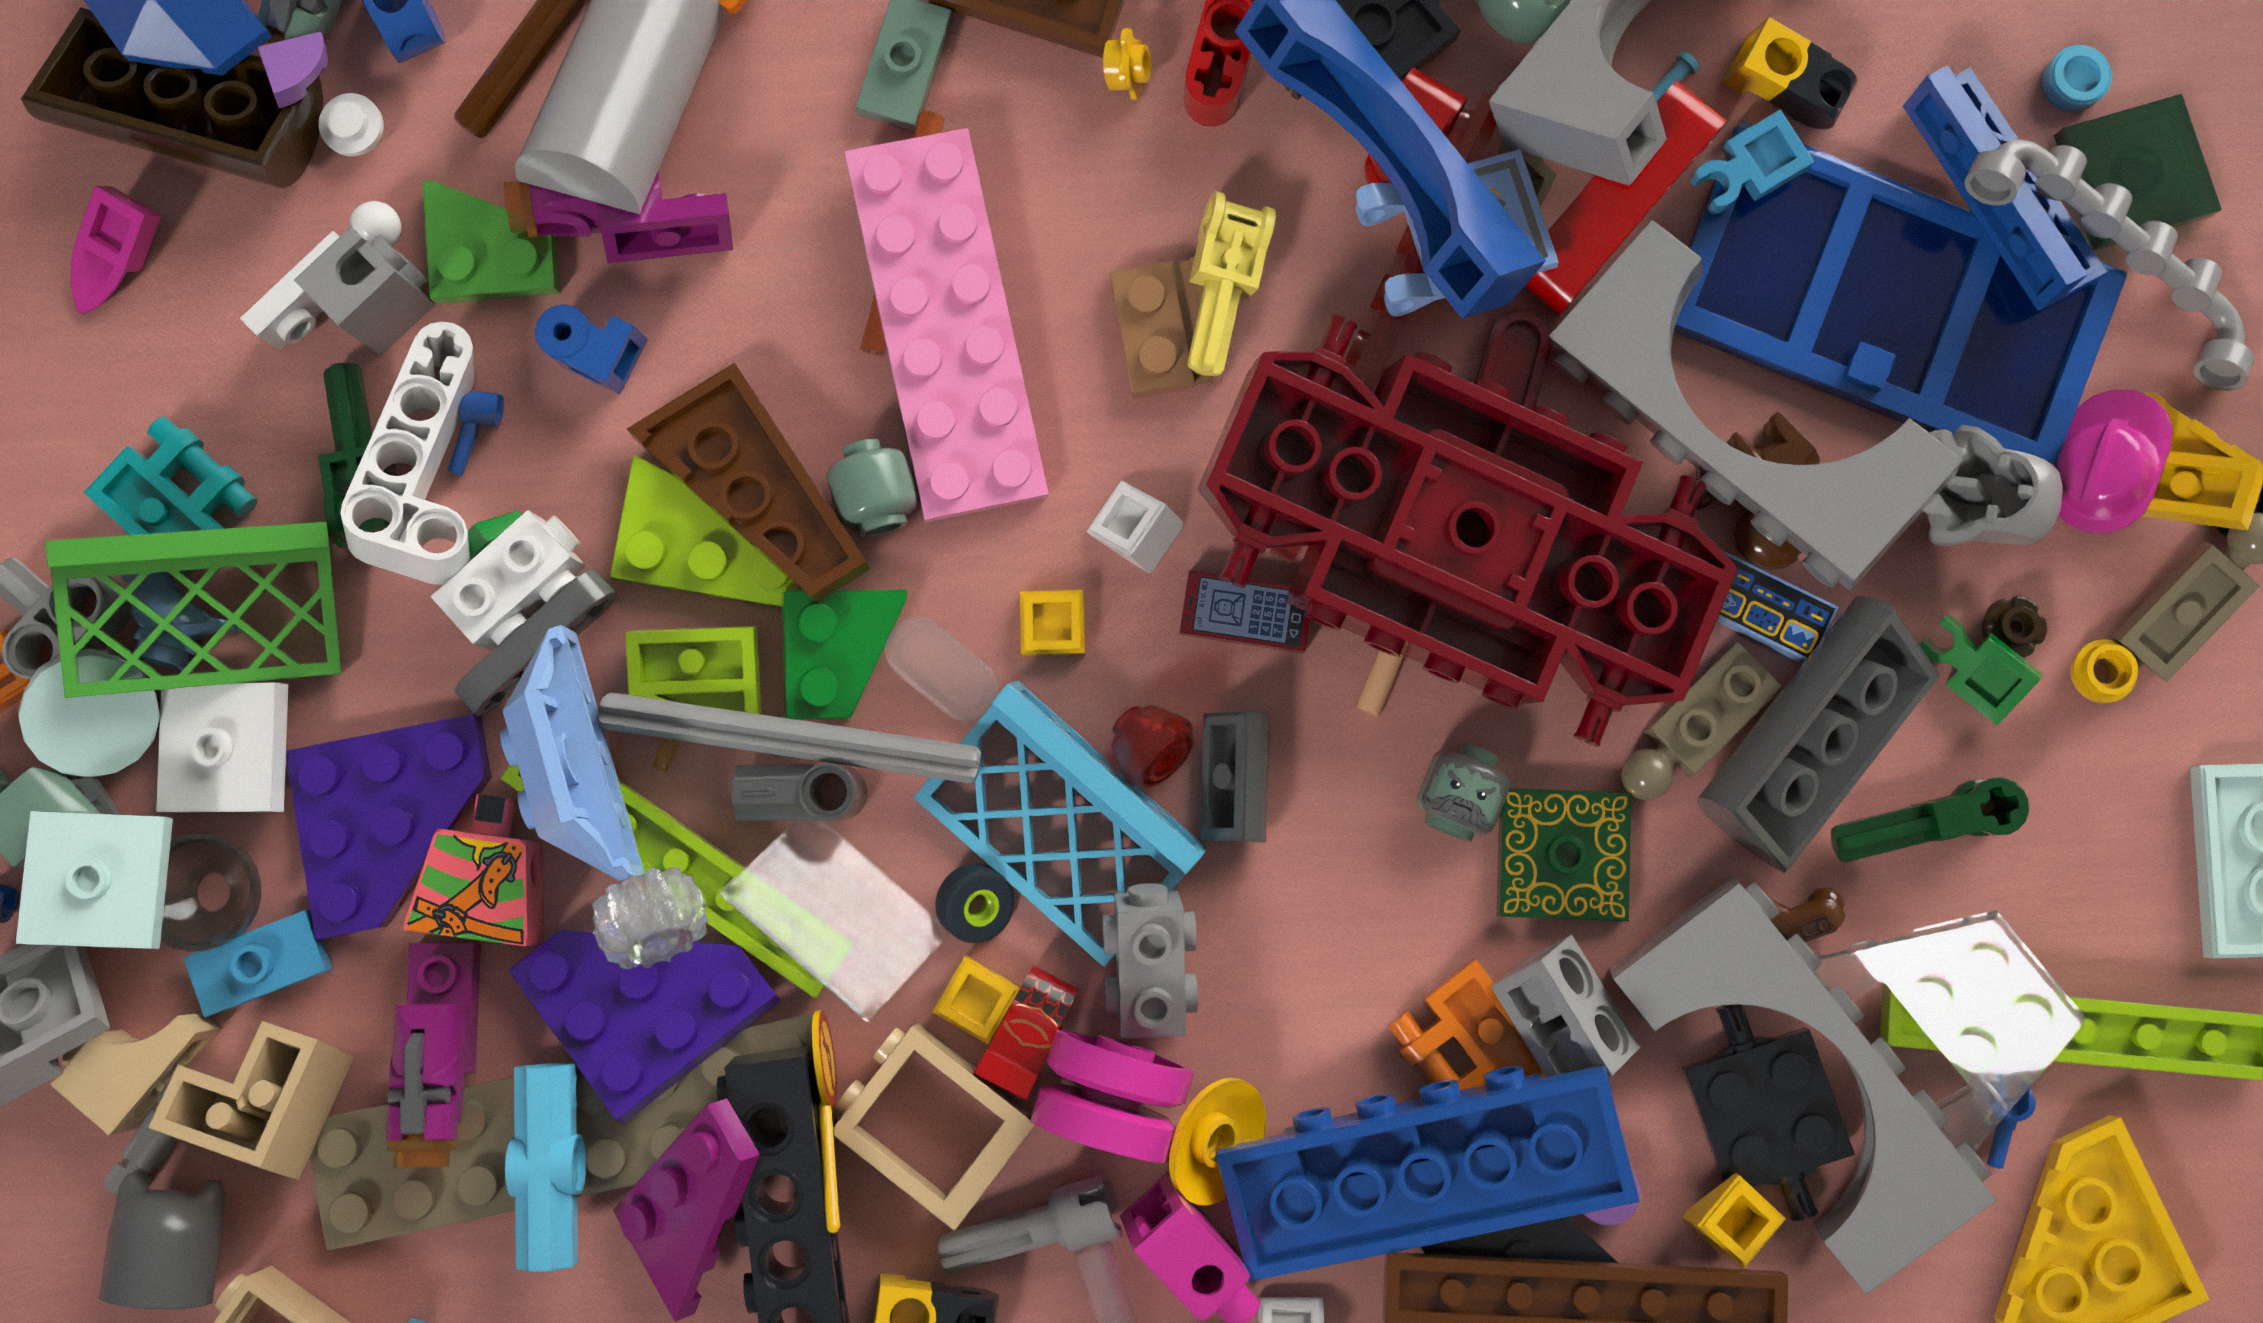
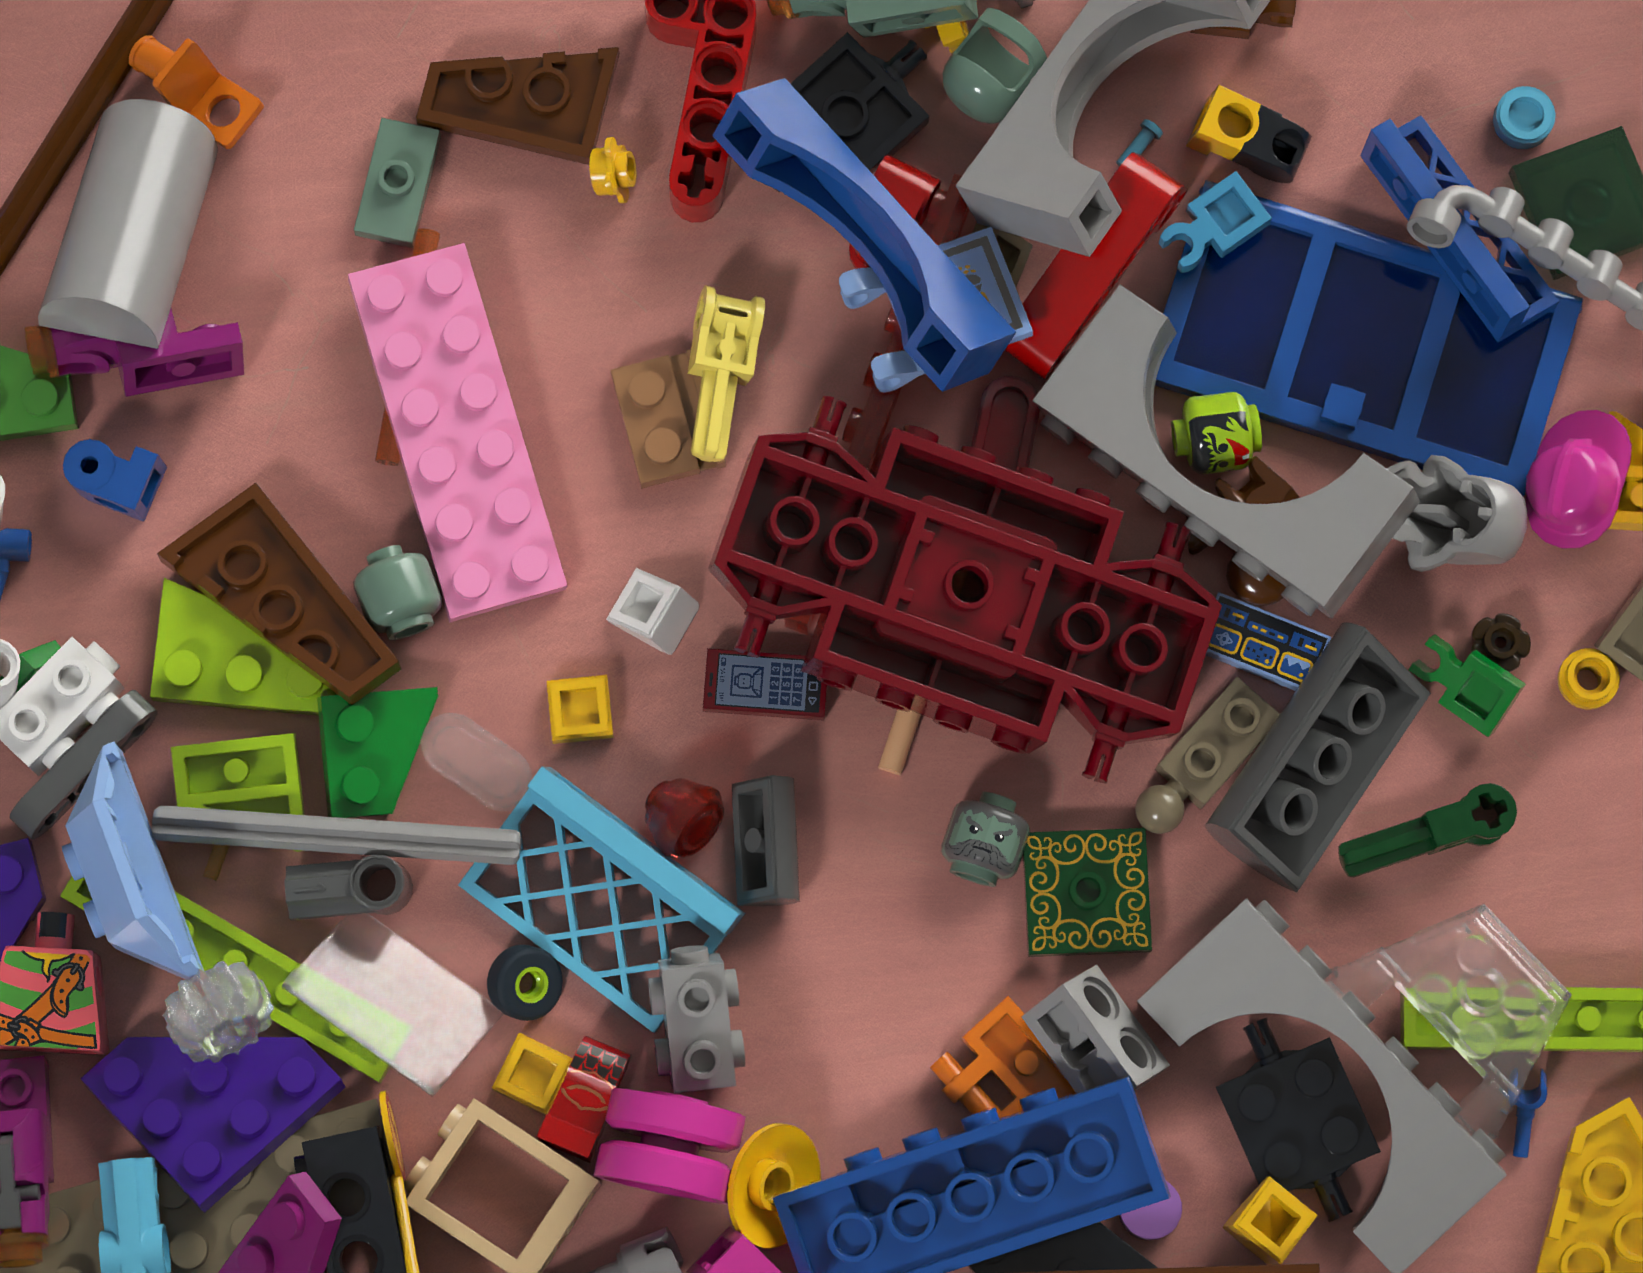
camera: 10 degrees left, 5 degrees down
(1738, 384) = (1217, 432): none -> lime head
(1813, 919) = (1325, 934): reddish brown arm -> none

